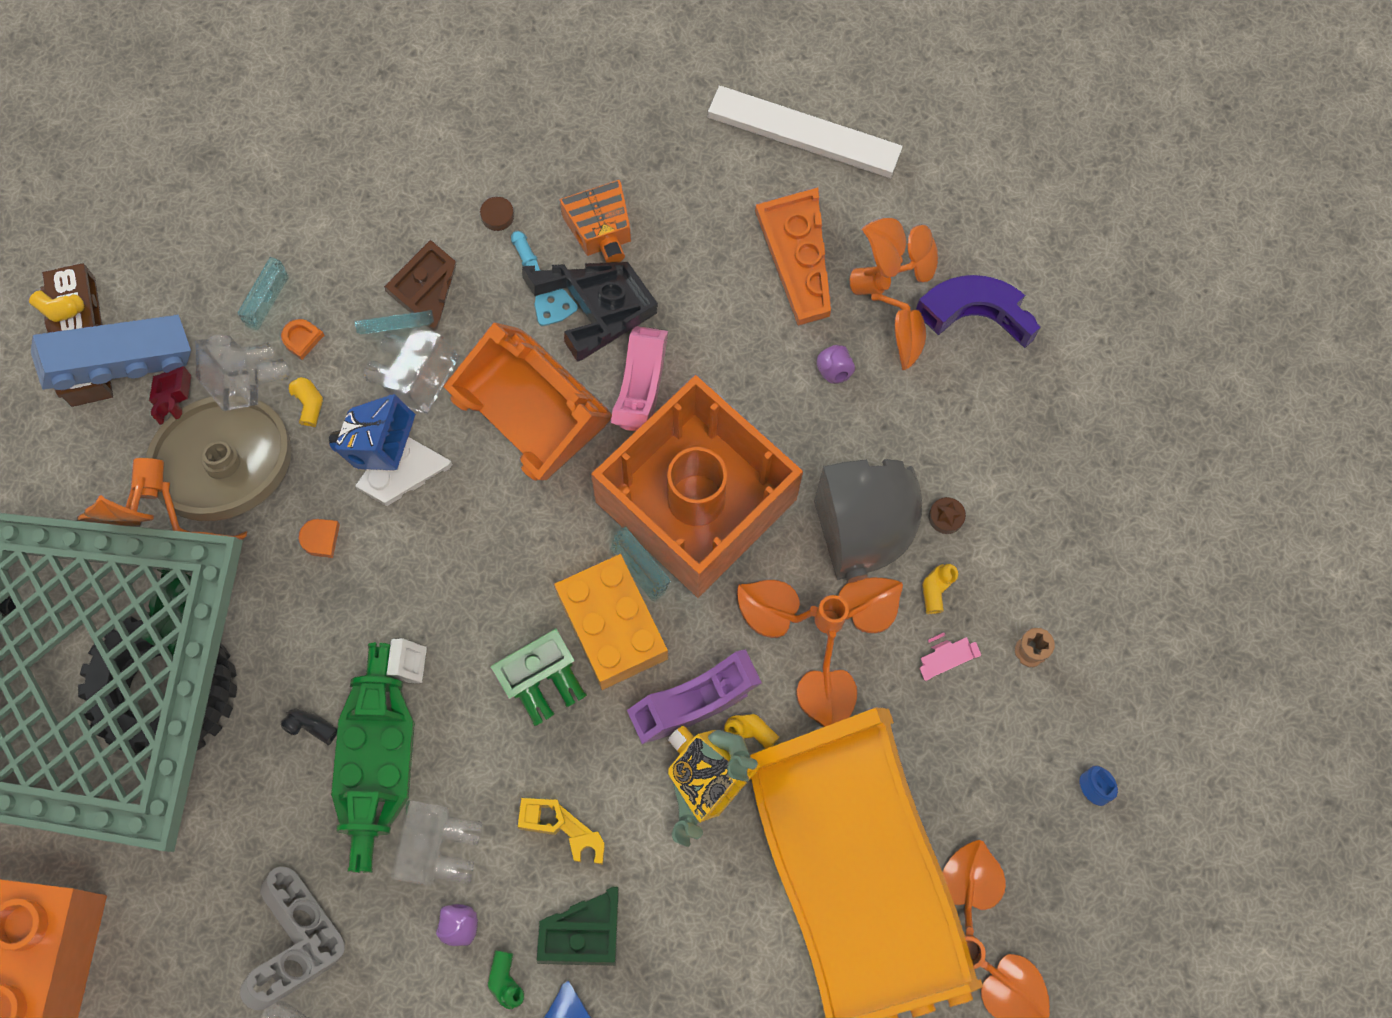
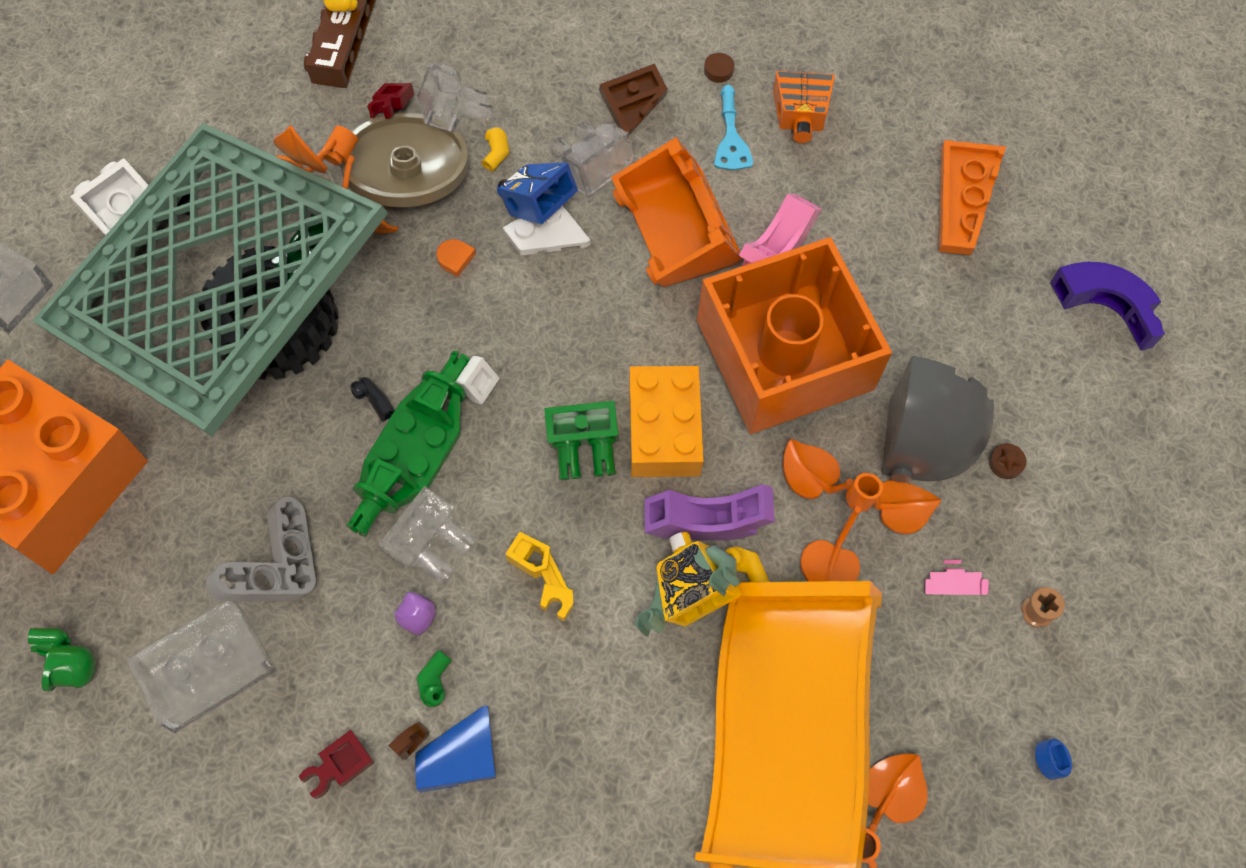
camera: 25 degrees right, 5 degrees down
(109, 352) = (359, 45): medium blue brick -> none
(263, 294) = (500, 54): clear light blue tile -> none
(301, 337) = (514, 100): orange tile -> none
(394, 322) = (594, 113): clear light blue tile -> none
(582, 933) = (518, 670): dark green wing -> none
(608, 295) = (782, 161): black wing -> none
(640, 564) = (712, 386): clear light blue tile -> none
(805, 131) = (1015, 101): white tile -> none
(835, 364) = (959, 294): medium lavender piece -> none
(888, 246) = (1051, 202): orange plant -> none
(935, 584) = (971, 515): yellow arm -> none

